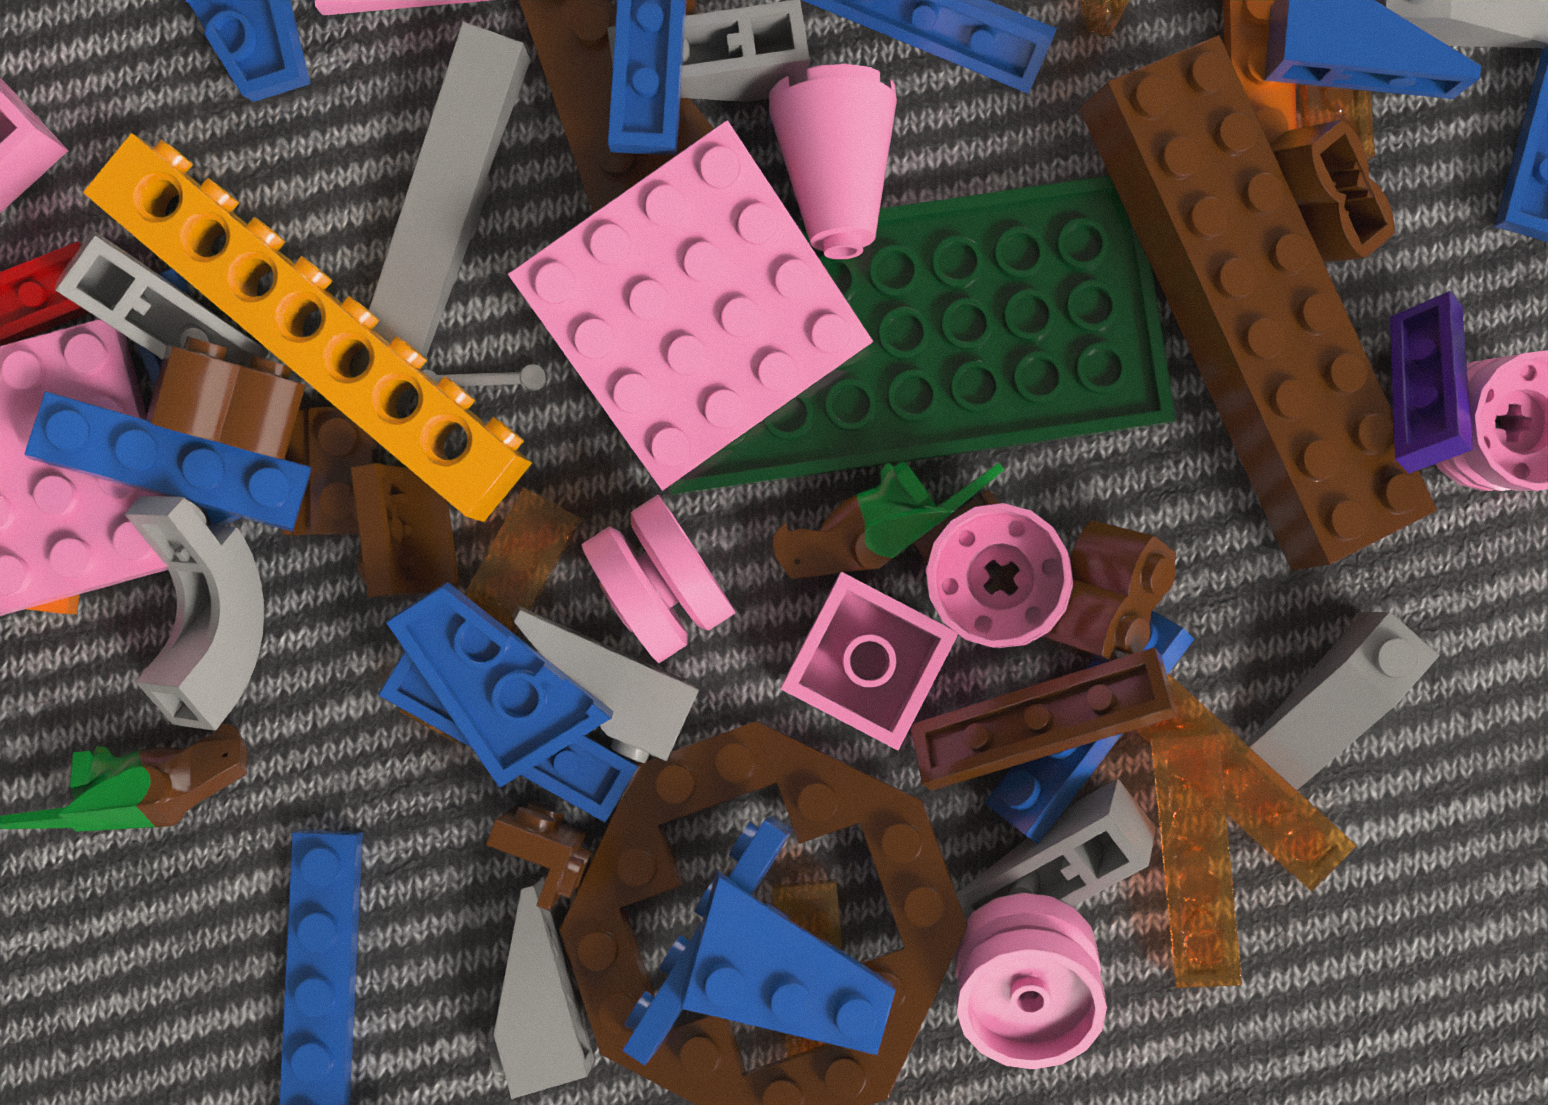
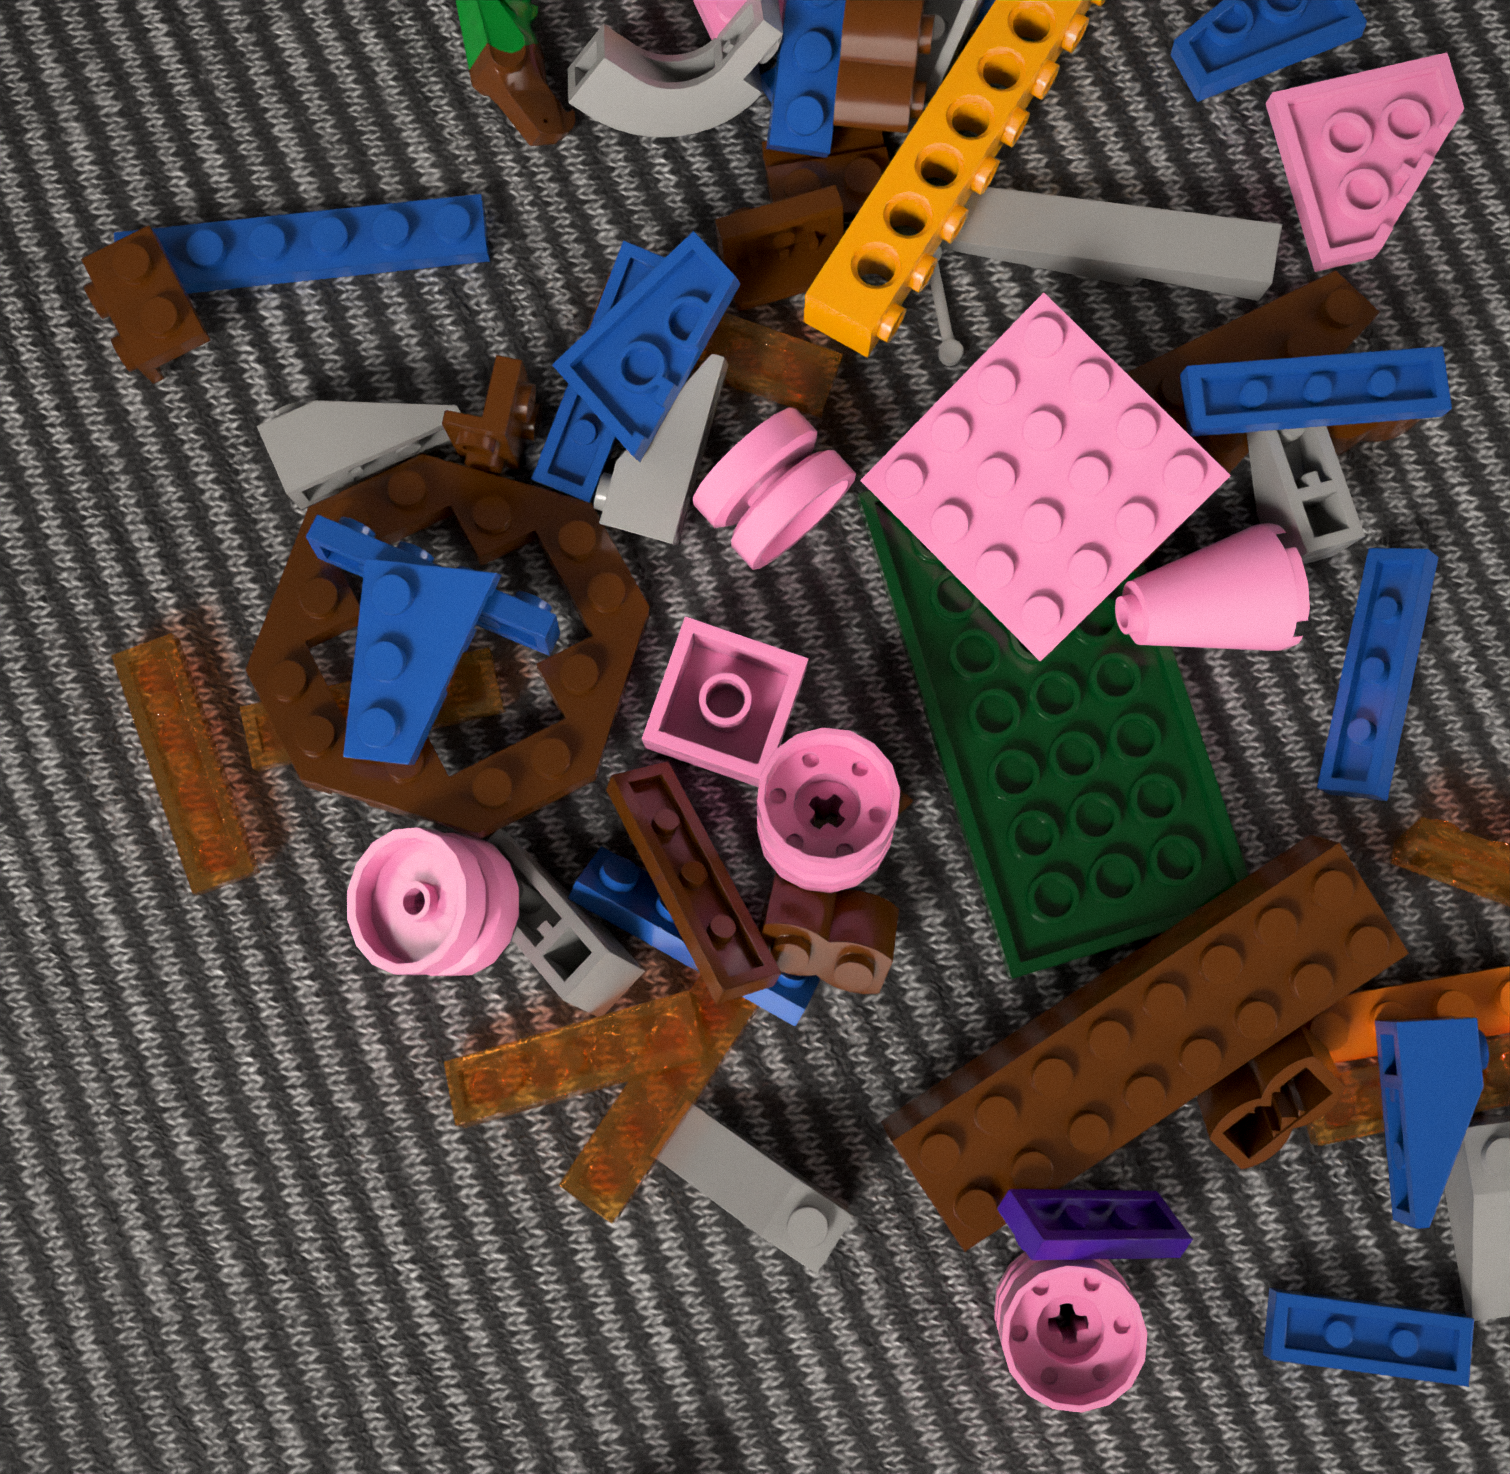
camera: 75 degrees right, 5 degrees down
(870, 525) = (857, 688): animal -> none

